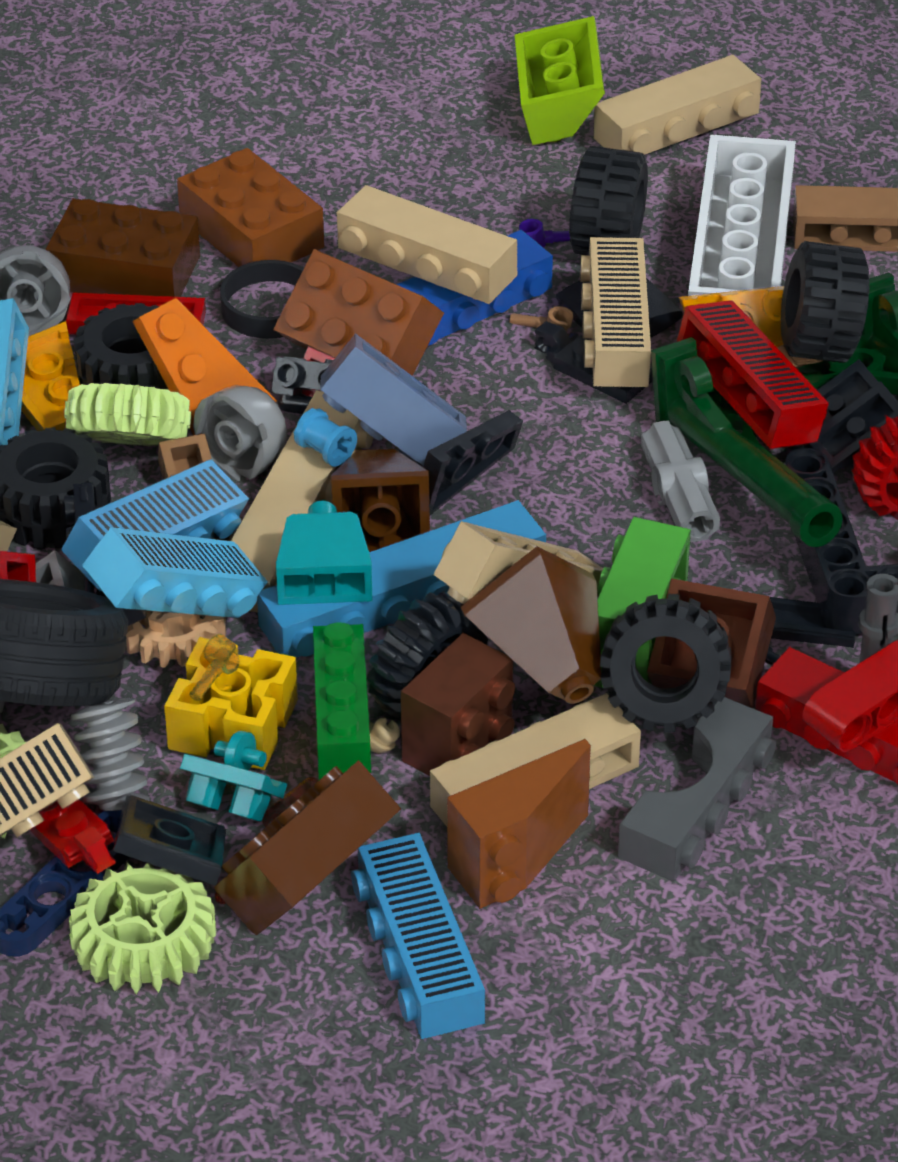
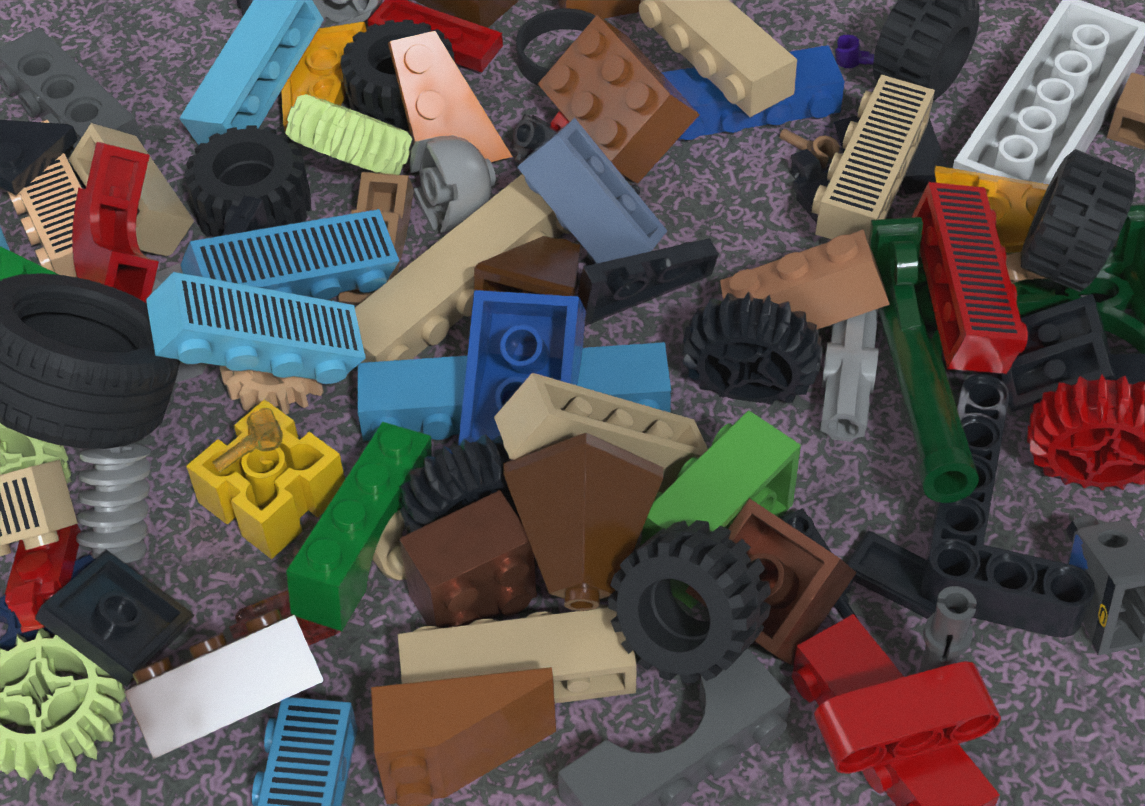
camera: 25 degrees right, 10 degrees up
(252, 789) = (226, 560): teal hips -> none
(323, 558) = (423, 349): teal torso -> none
(326, 437) = (511, 221): dark azure bush -> none
(406, 532) = (510, 341): none -> blue slope
(593, 473) = (752, 349): none -> black gear
(616, 427) = (823, 281): none -> nougat brick

